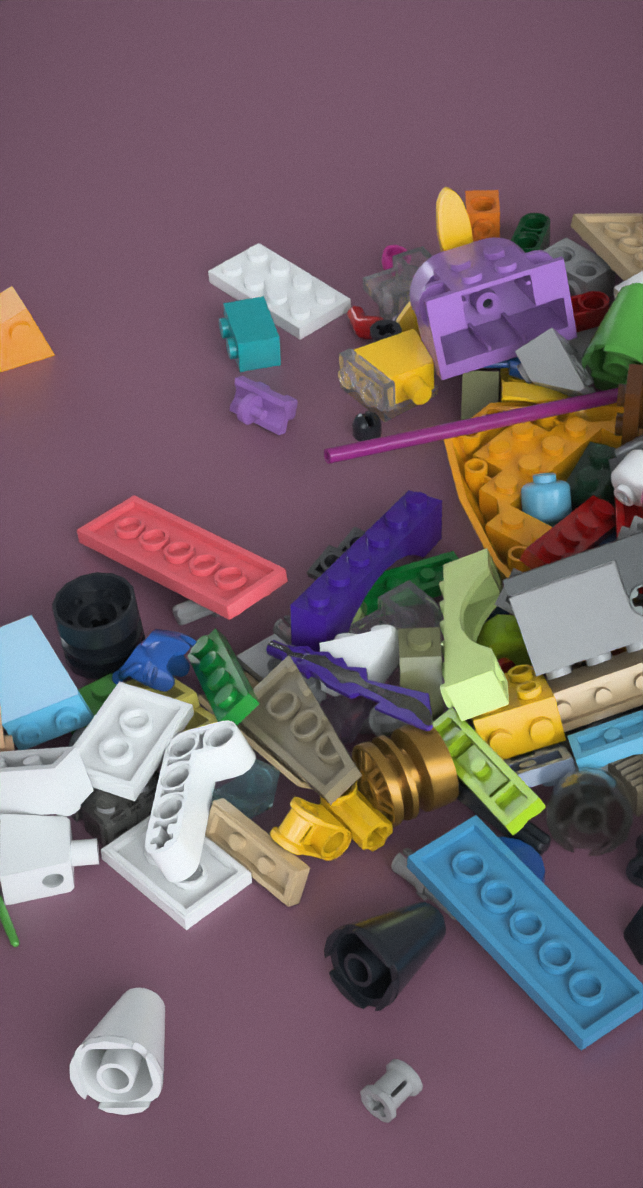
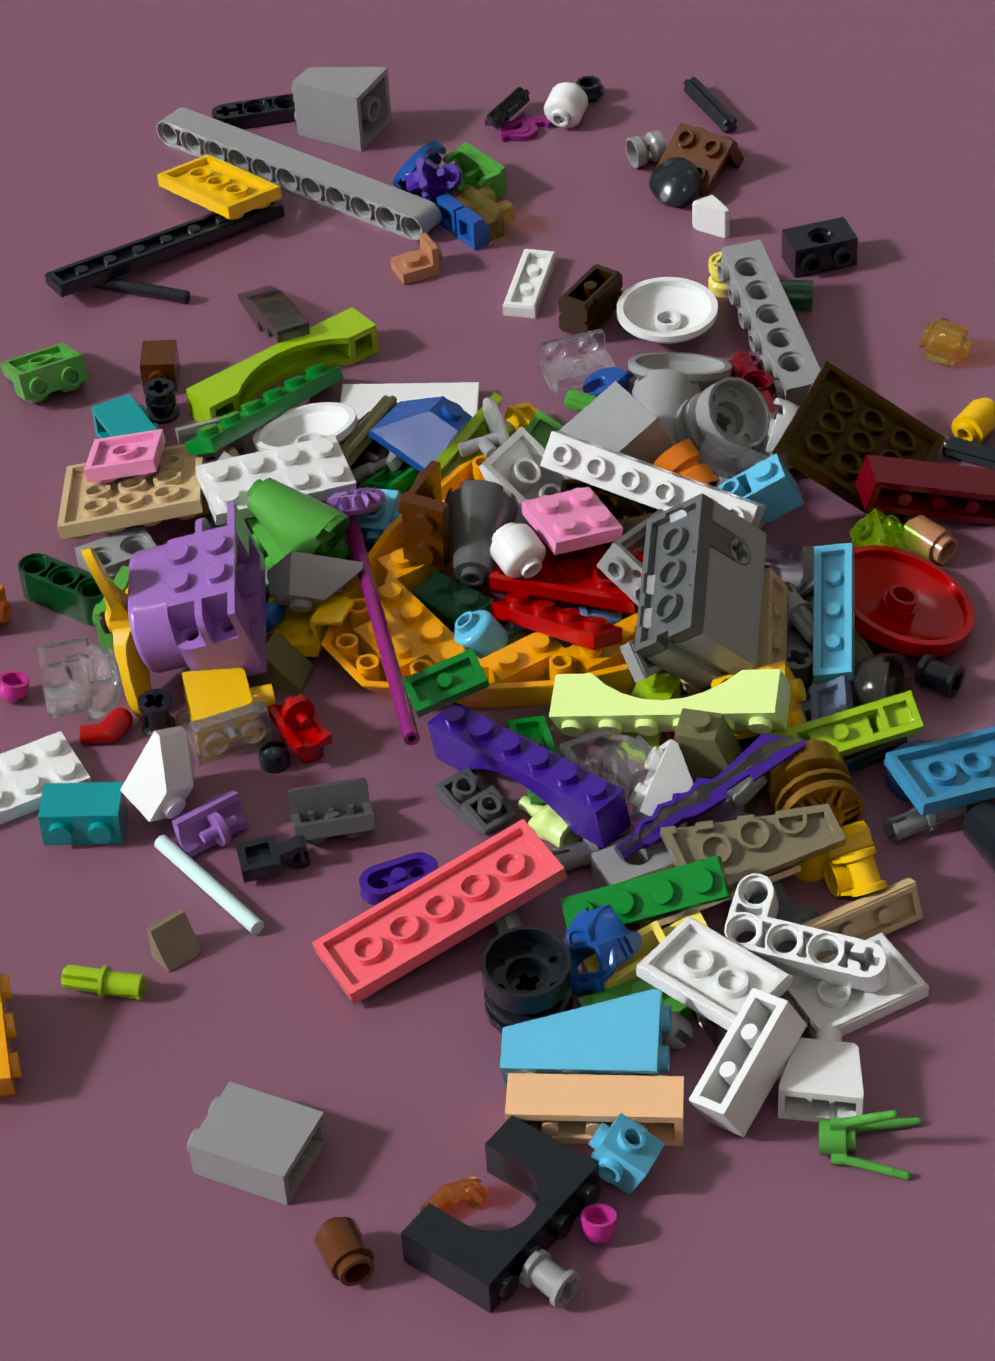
camera: 75 degrees left, 0 degrees up
(68, 397) = (104, 981): none -> lime axle
(120, 420) = (173, 941): none -> dark tan slope
(193, 432) = (209, 885): none -> light aqua bar
(231, 526) = (394, 875): none -> dark purple plate
(234, 447) = (265, 857): none -> black plate
(290, 355) = (162, 775): none -> white slope
(296, 472) = (331, 810): none -> dark grey bracket
(397, 417) = (301, 727): none -> red hips
(452, 482) = (445, 682): none -> green plate

